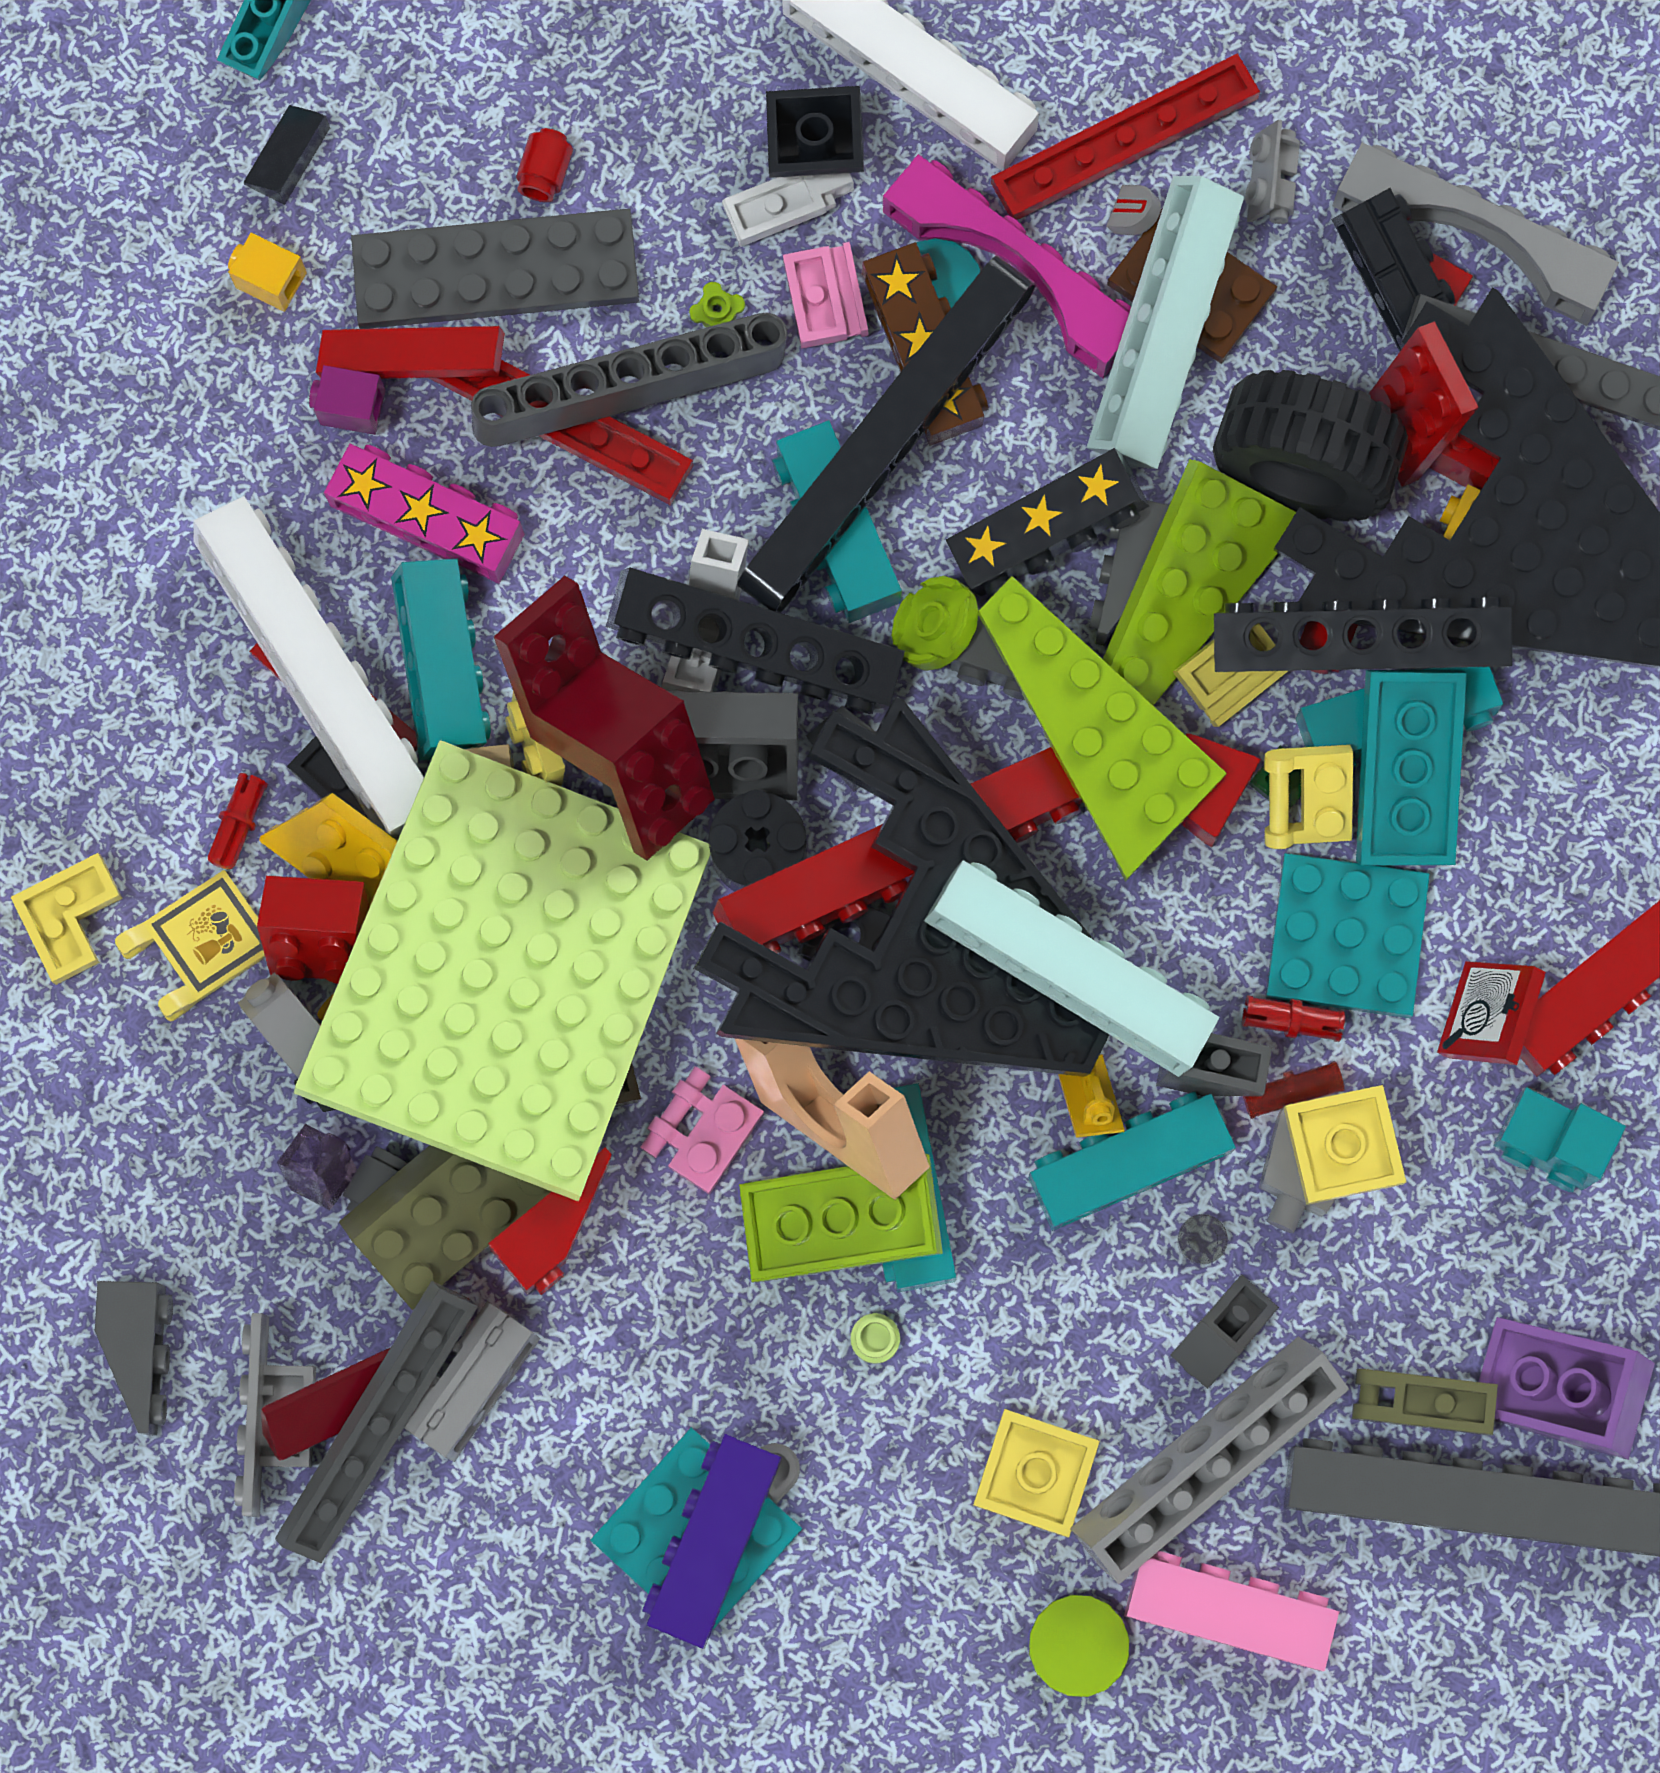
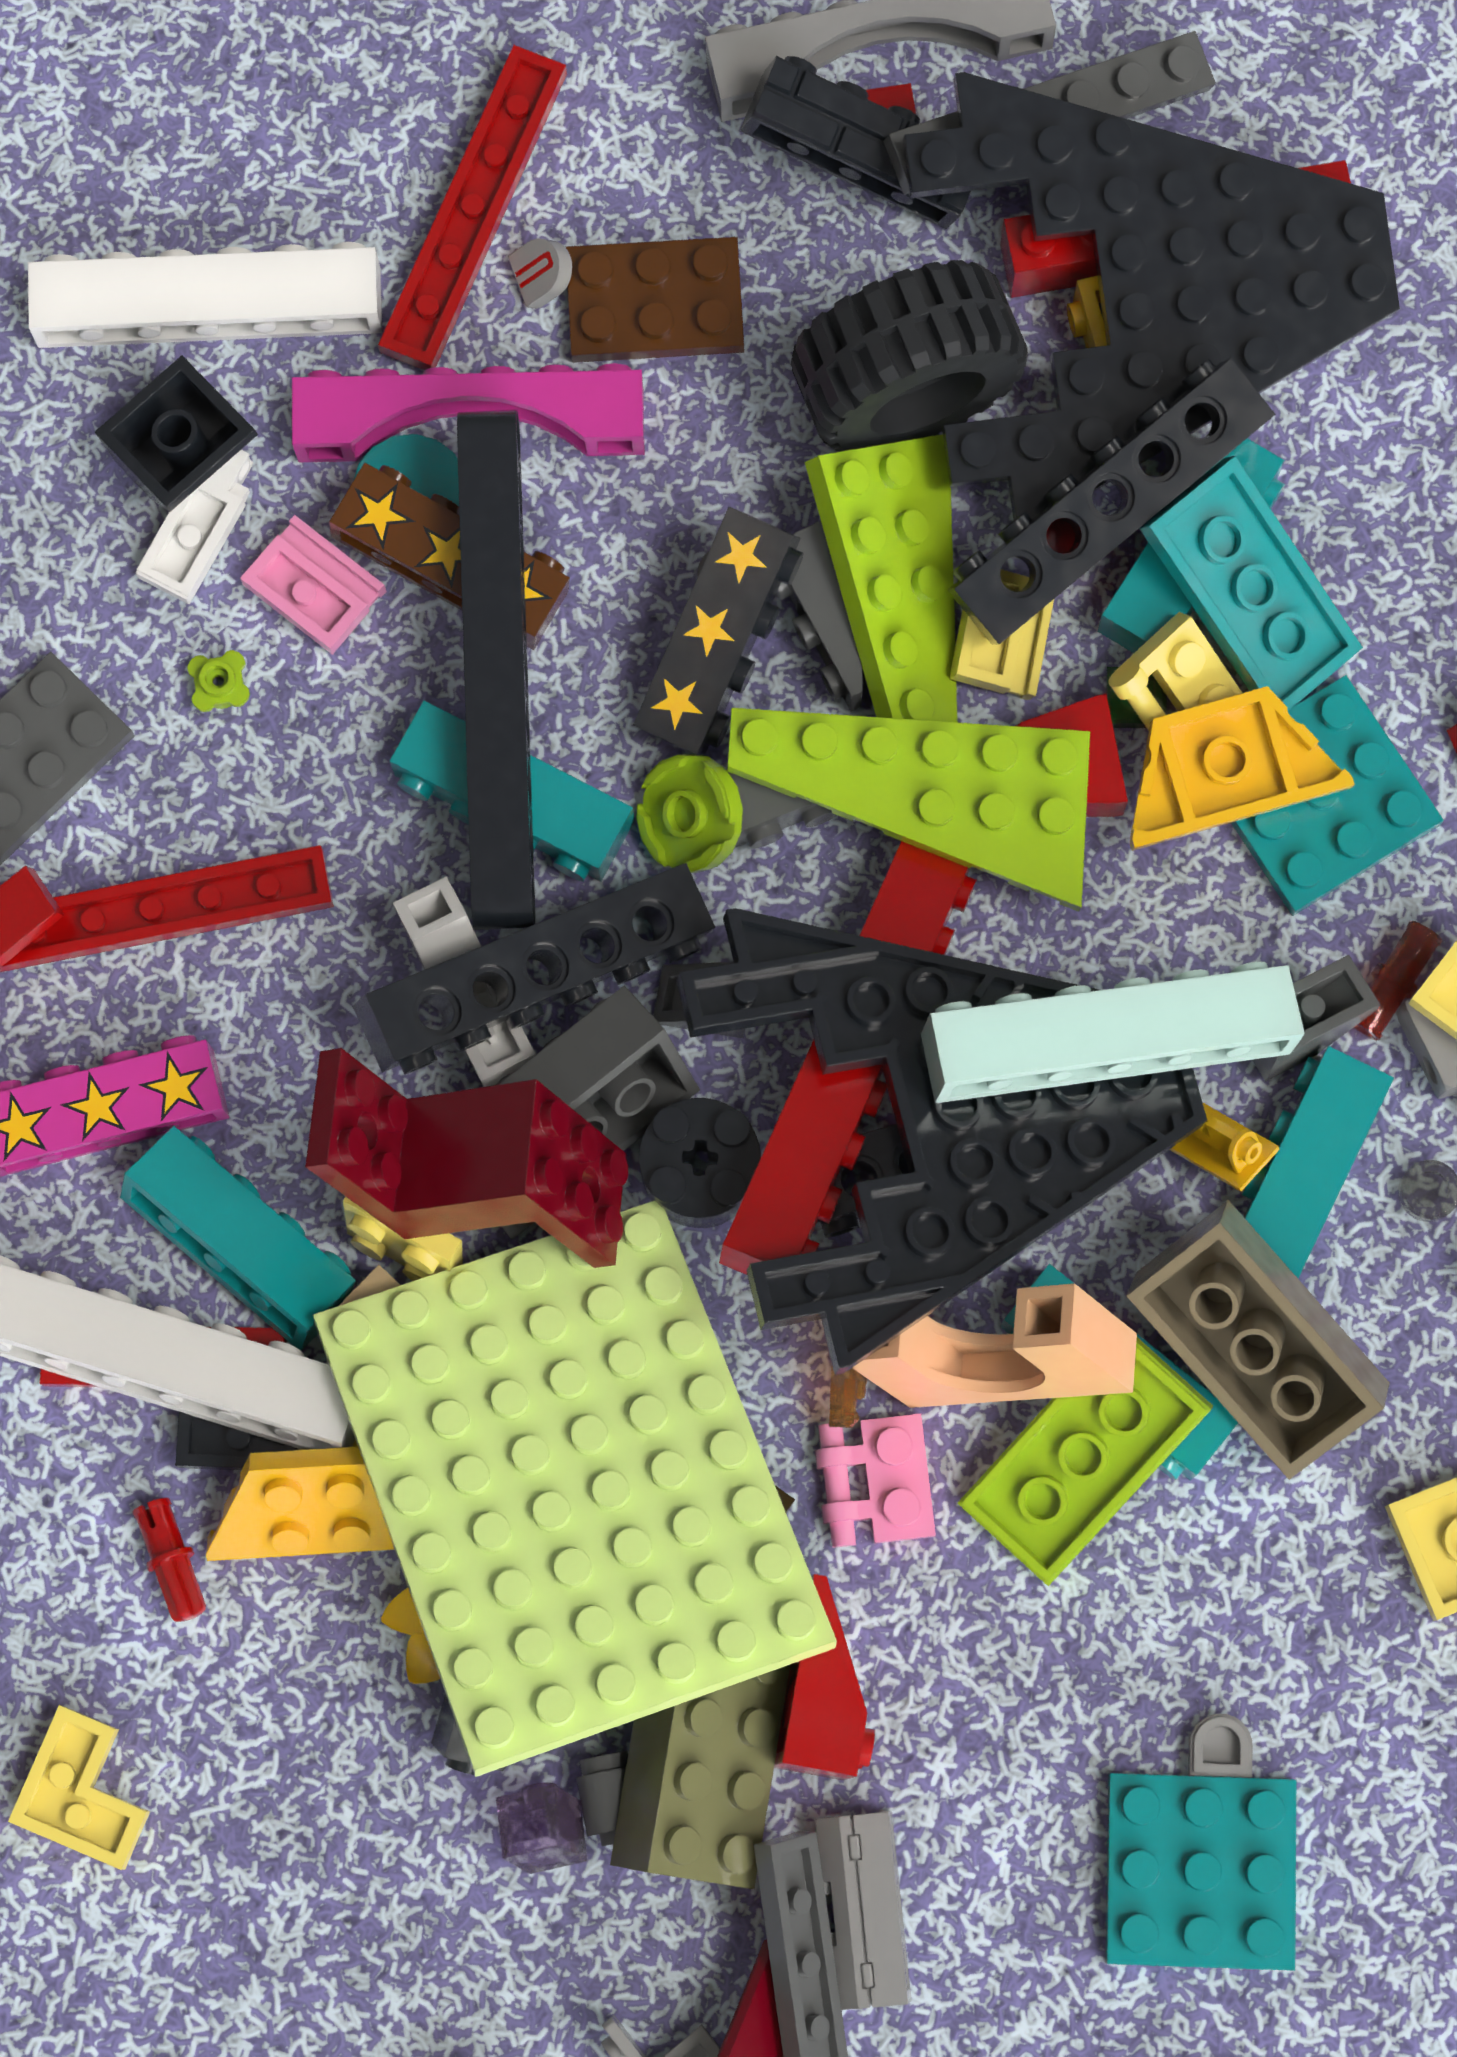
camera: 40 degrees left, 0 degrees up
(204, 937) = (237, 1700): light yellow flag -> none
(281, 1020) = (393, 1717): light grey slope -> none
(310, 925) = (342, 1599): red brick -> none
(613, 395) = (194, 842): dark grey beam -> none
(713, 1541) = (1231, 1864): dark purple brick -> none
(722, 1060) = (844, 1394): none -> clear orange tile
(875, 1338) = (1209, 1540): yellowish green plate -> none
(1006, 1237) = (1259, 1340): none -> dark tan brick
(1166, 320) = (667, 349): light aqua brick -> none
(1272, 154) = (627, 116): light grey hinge -> none
(1293, 1018) = (1337, 913): red pin -> none
(1297, 867) = (1227, 766): none -> yellow wing
(1427, 396) = (982, 218): red plate -> none

